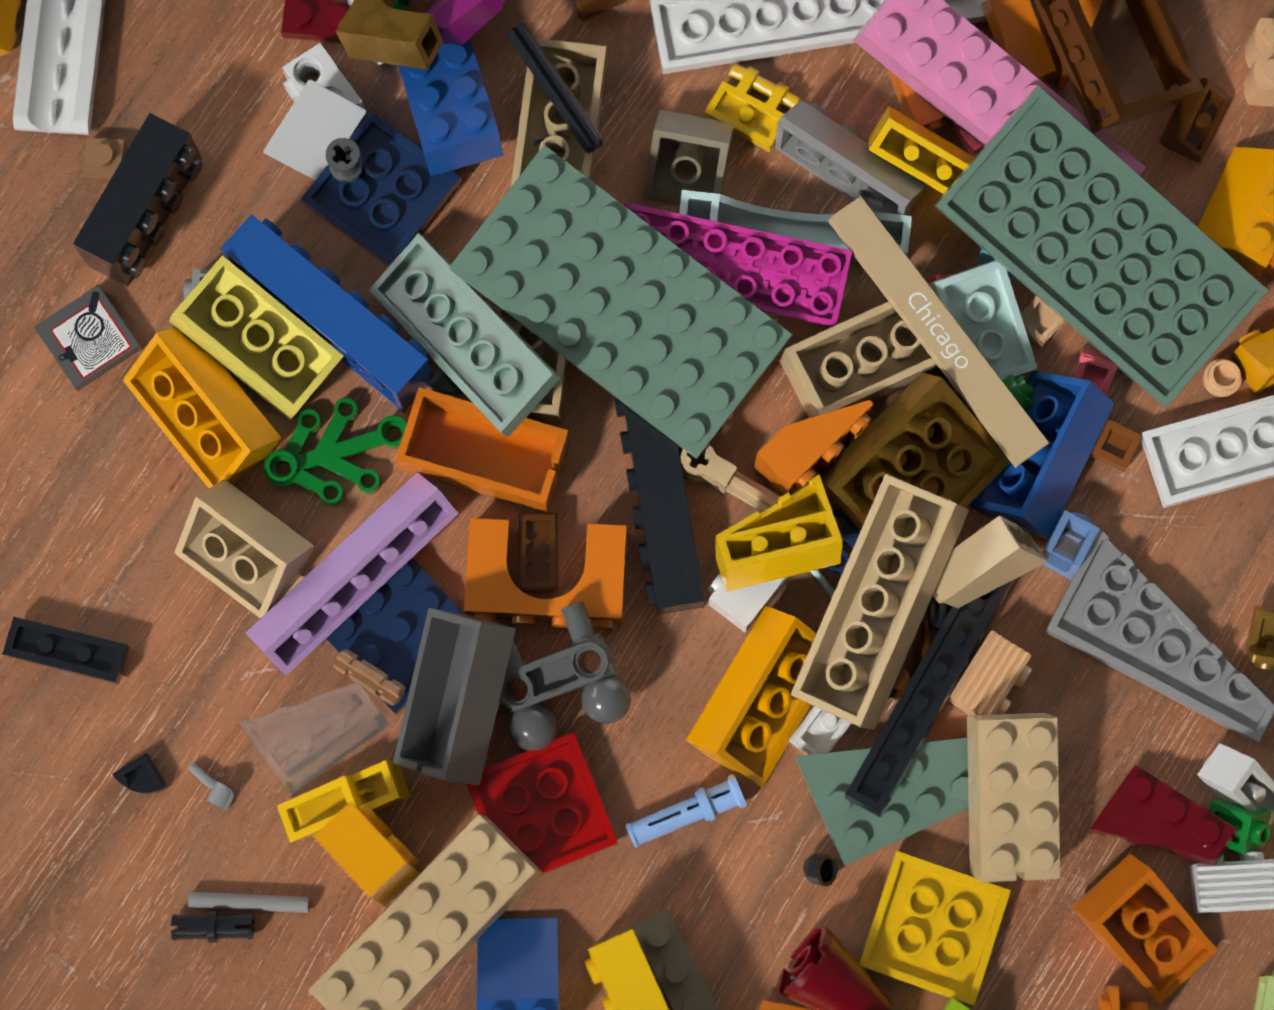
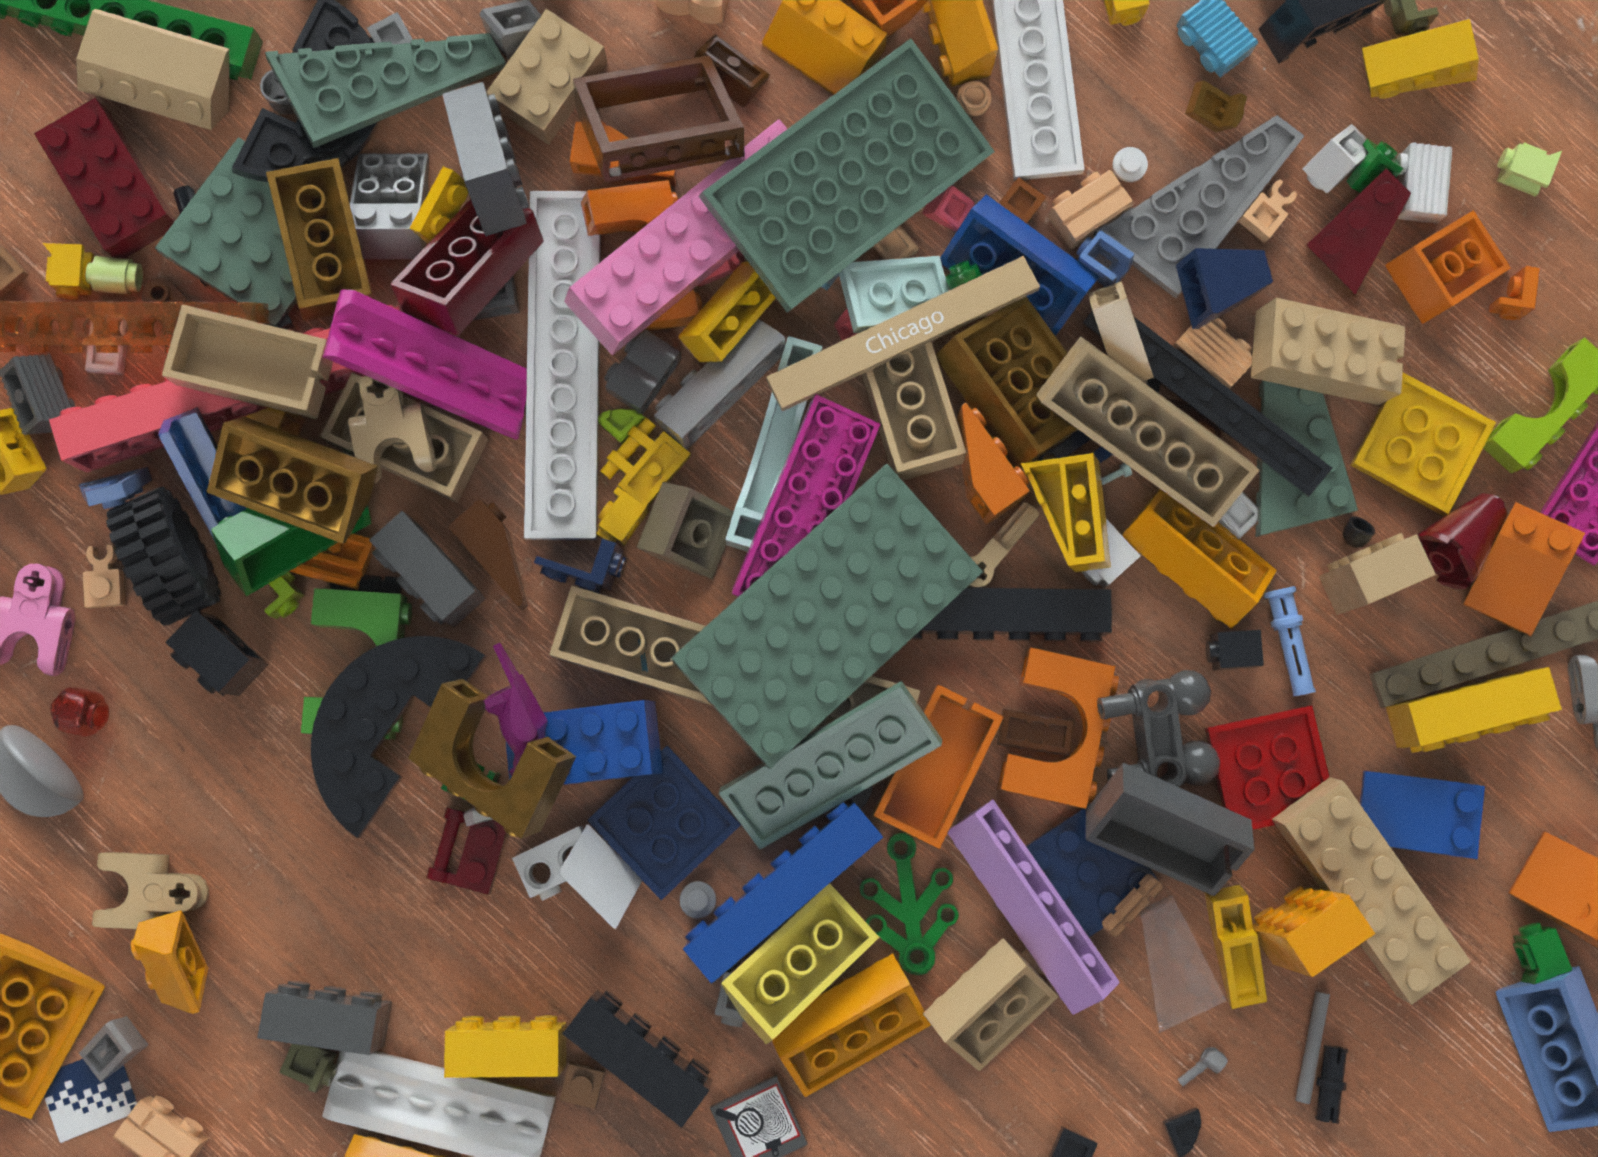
camera: 85 degrees left, 5 degrees up
(128, 67) = (505, 1047): none -> yellow brick
(309, 235) = (697, 899): none -> light grey plate
(349, 150) = (633, 863): dark grey bush -> none
(555, 88) = (606, 639): black axle -> none
(630, 78) = (607, 566): none -> dark blue bracket
(664, 750) = (1235, 650): none -> black brick
(688, 90) = (621, 518): none -> yellow brick
(772, 878) = (1376, 572): none -> tan brick
(791, 73) = (619, 422): none -> lime tile
(848, 85) = (642, 371): none -> dark grey brick
(1068, 668) = (1220, 281): none -> dark blue slope
(1125, 517) = (1089, 208): none -> light nougat brick
(1160, 714) = (1267, 212): none -> light nougat plate
(1184, 556) = (1129, 164): none -> white plate

